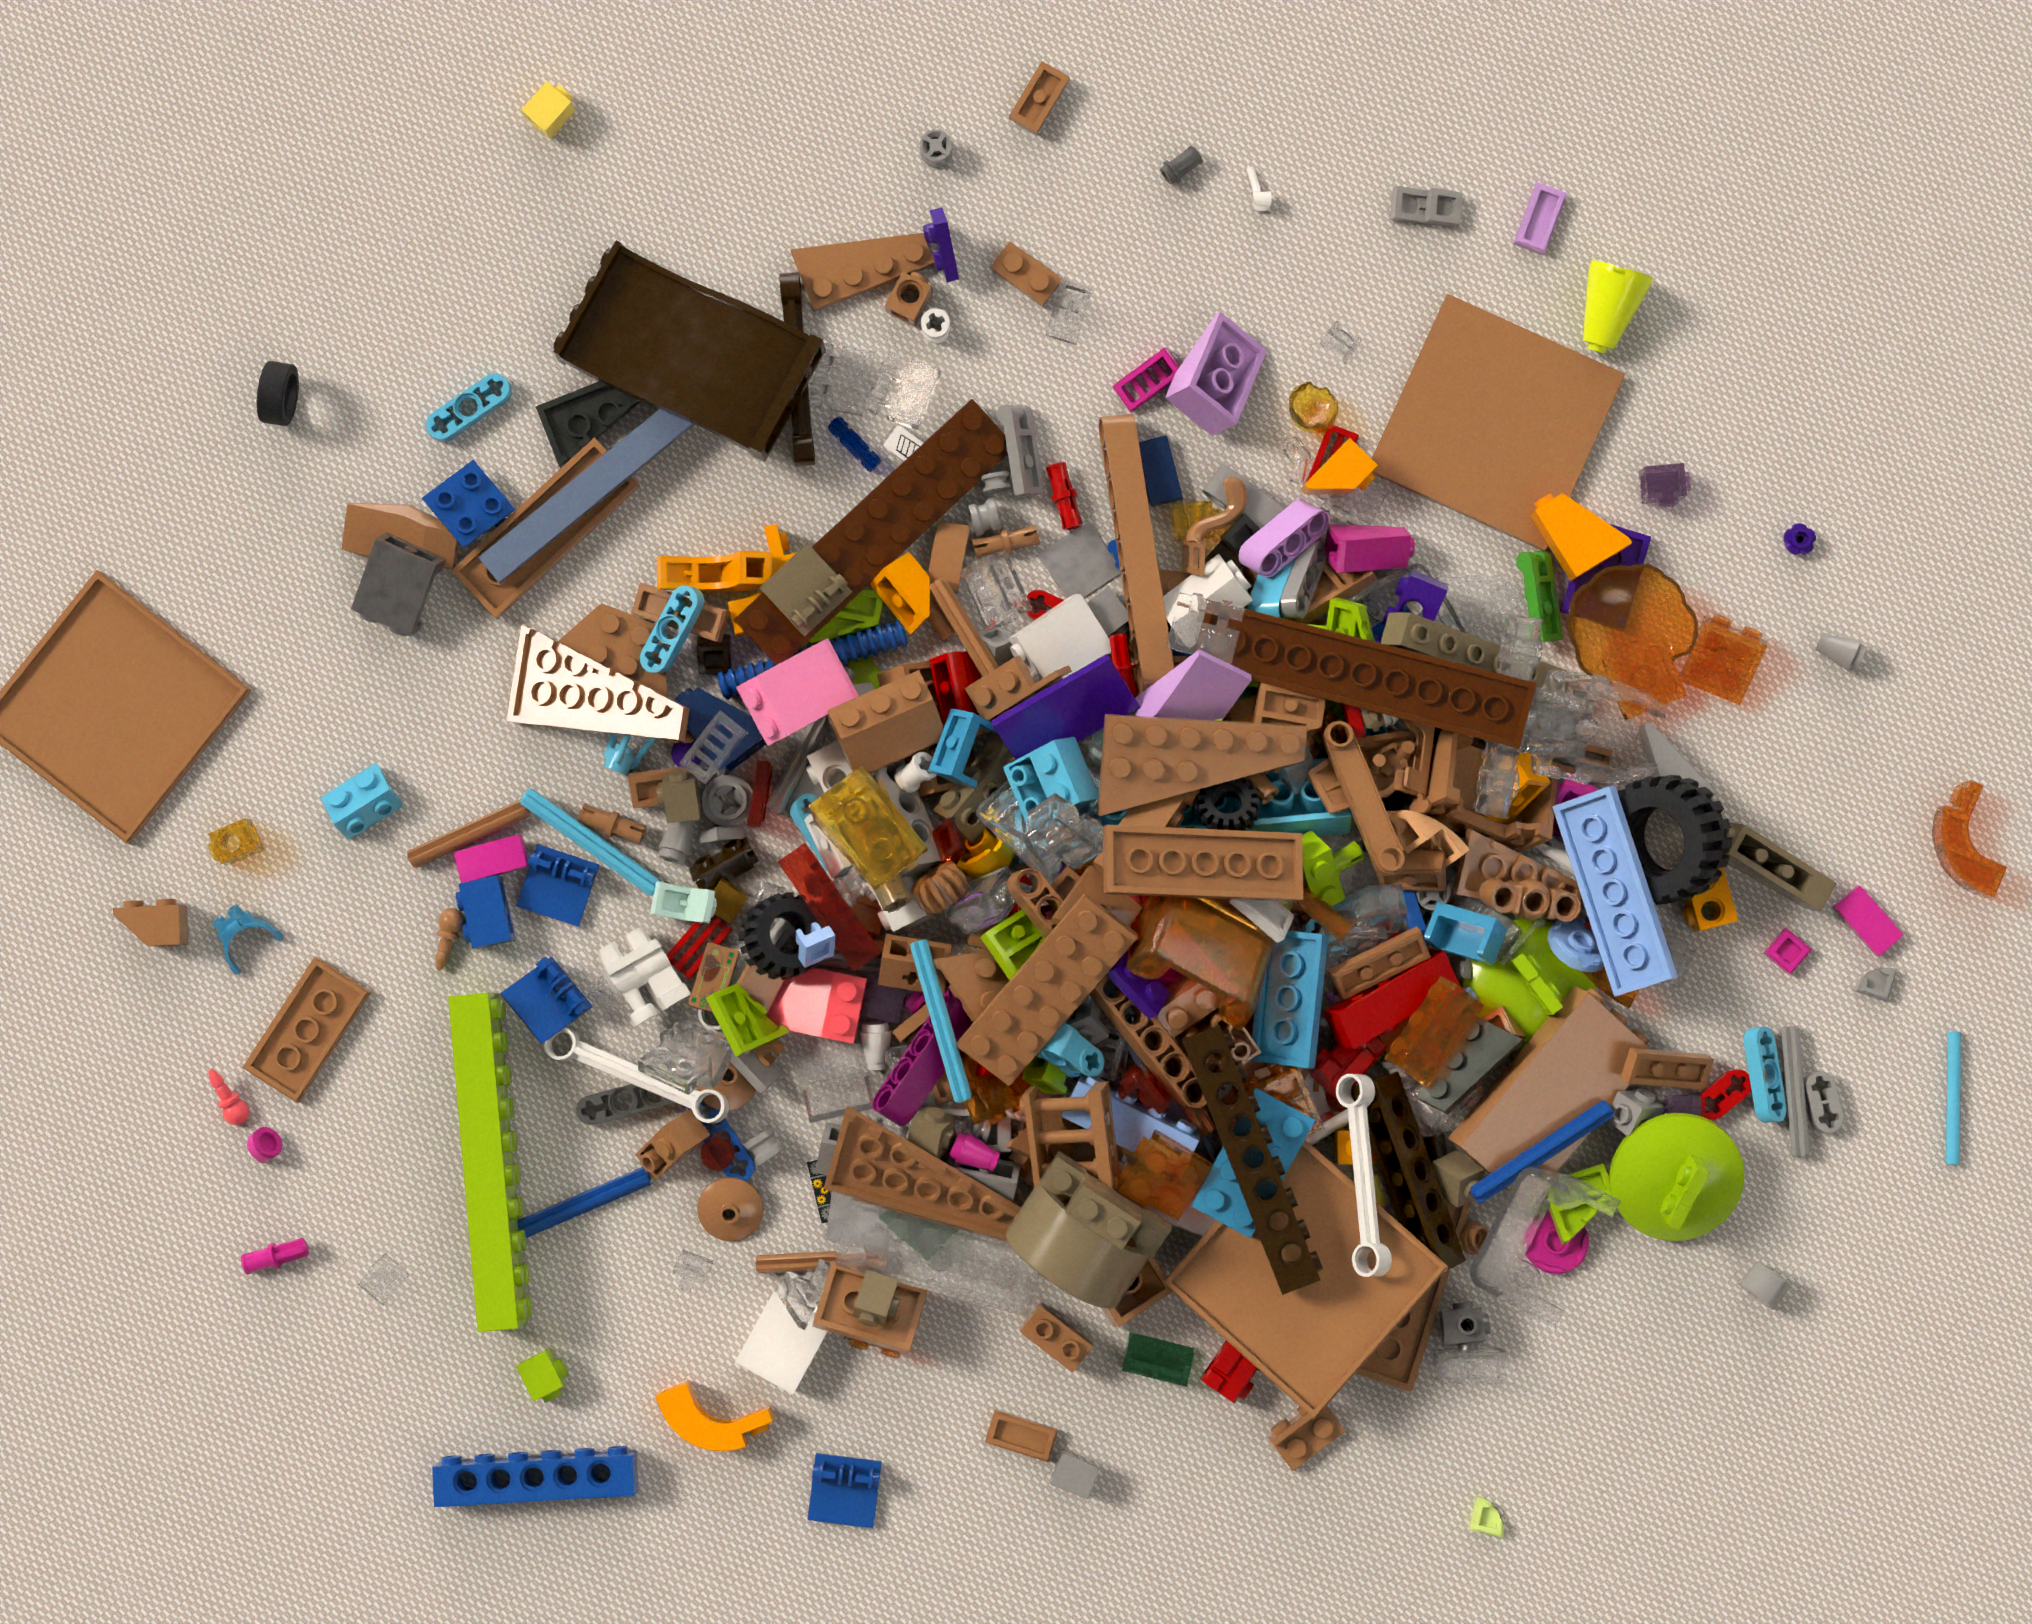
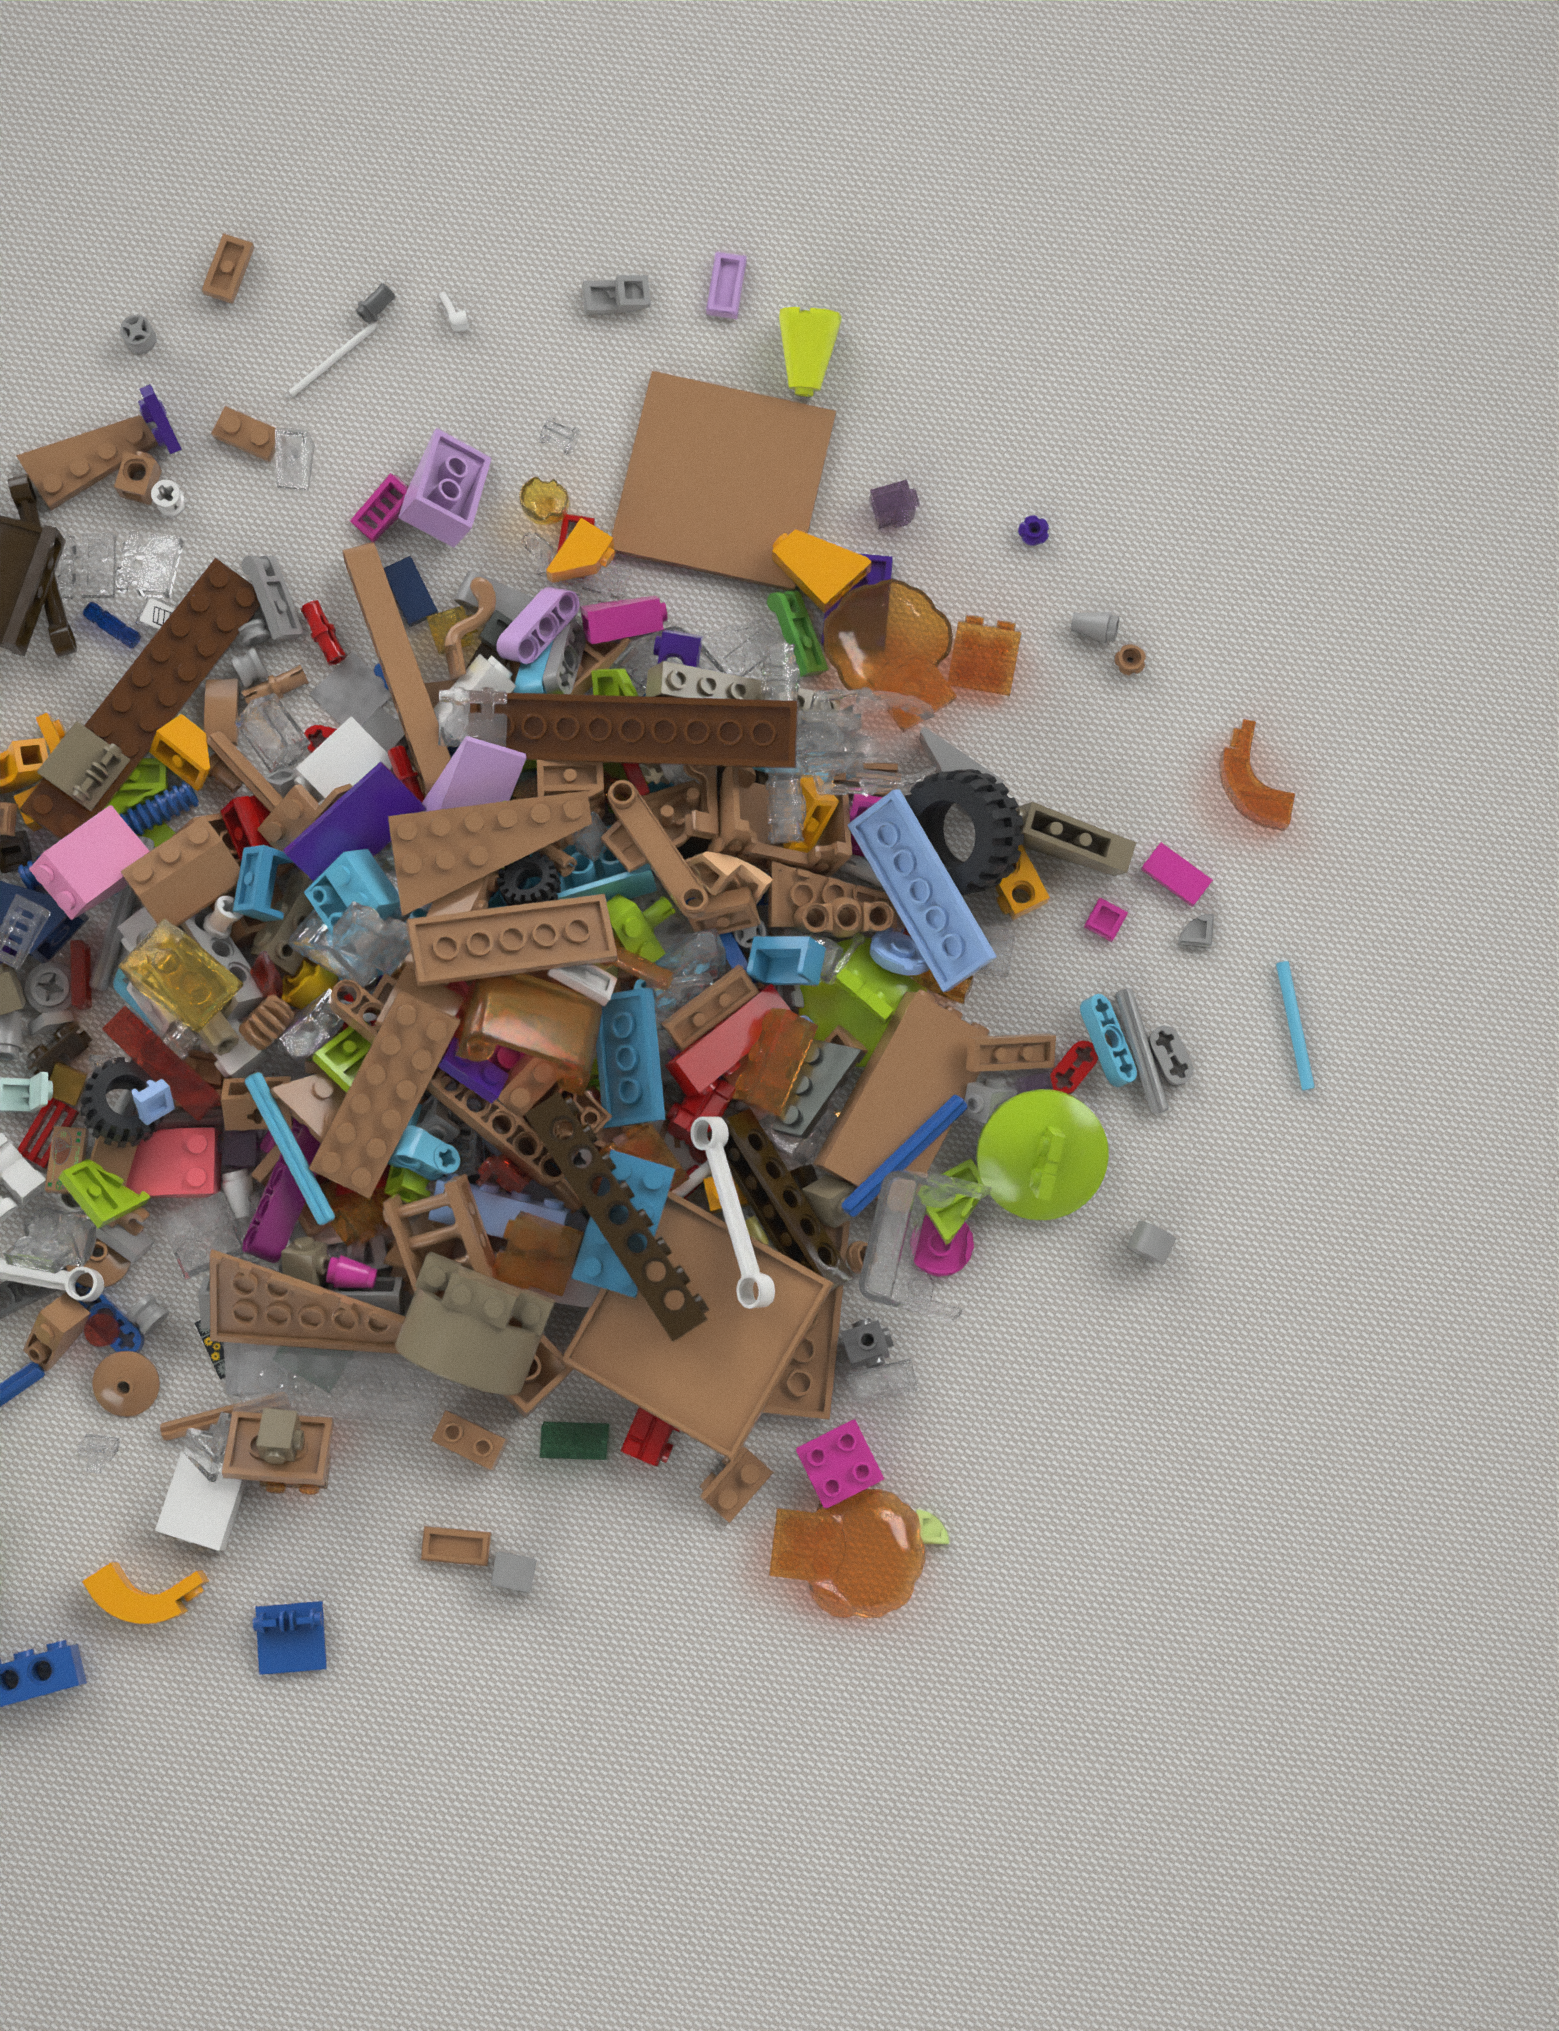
camera: 15 degrees left, 5 degrees down
(1126, 213) = (332, 359): none -> white axle
(1409, 1525) = (854, 1554): none -> clear orange animal
(1414, 1439) = (839, 1464): none -> dark pink bracket
(1877, 692) = (1136, 654): none -> medium nougat plate

